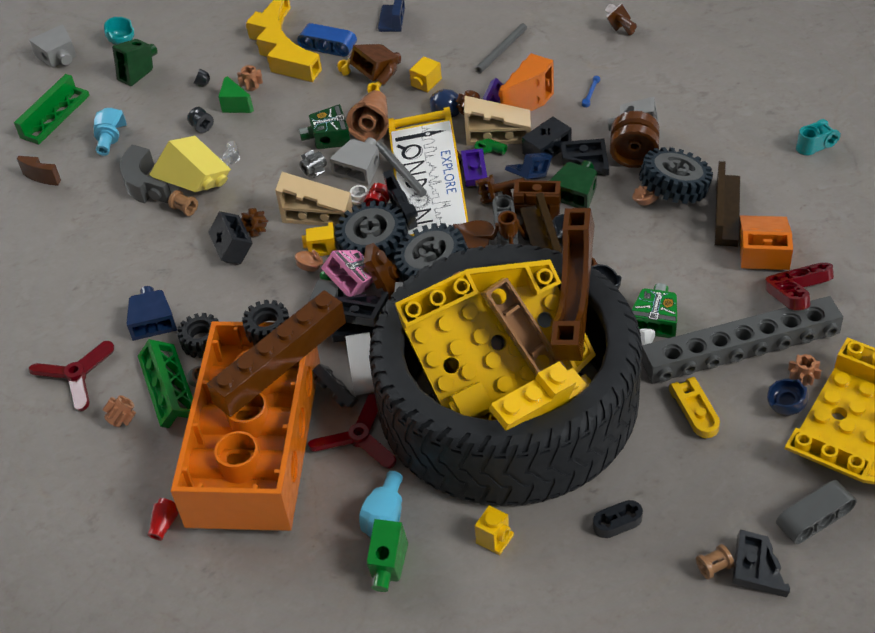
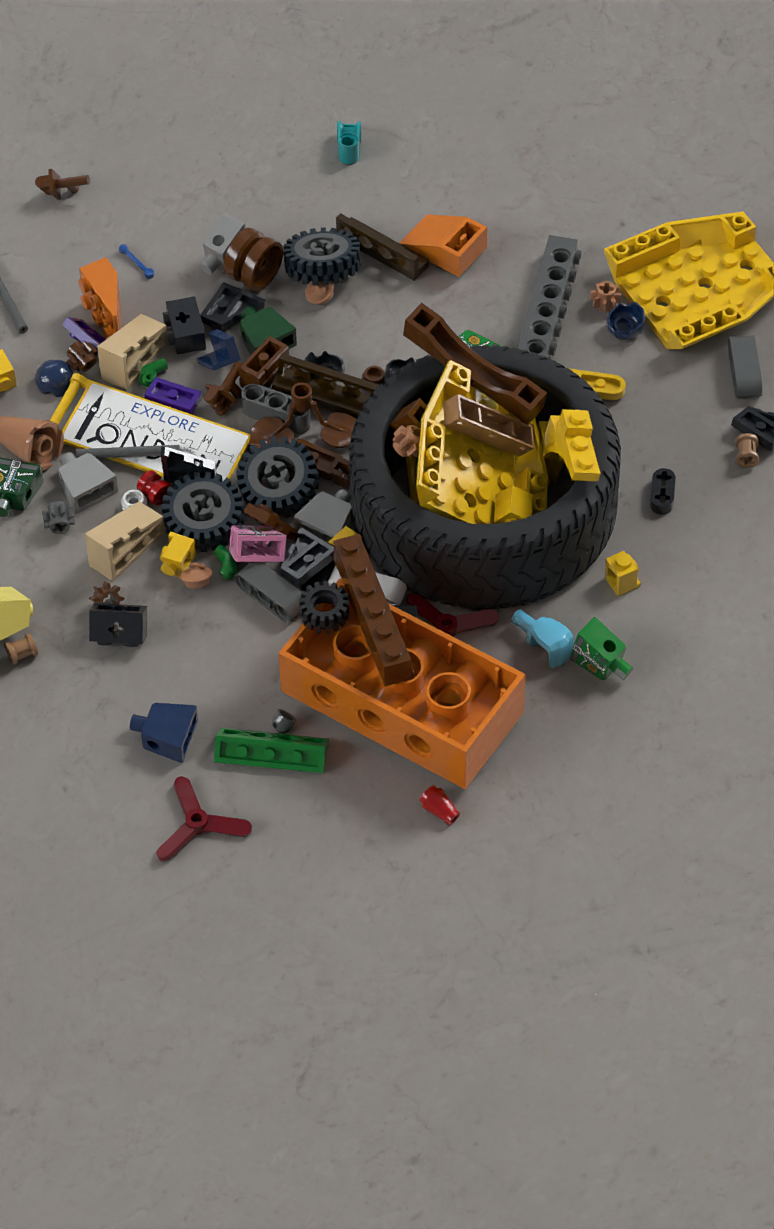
camera: 65 degrees left, 5 degrees up
(119, 411) = (285, 794): nougat gear -> none
(191, 328) = (232, 712): black tyre -> none
(789, 285) = (505, 259): dark red beam -> none

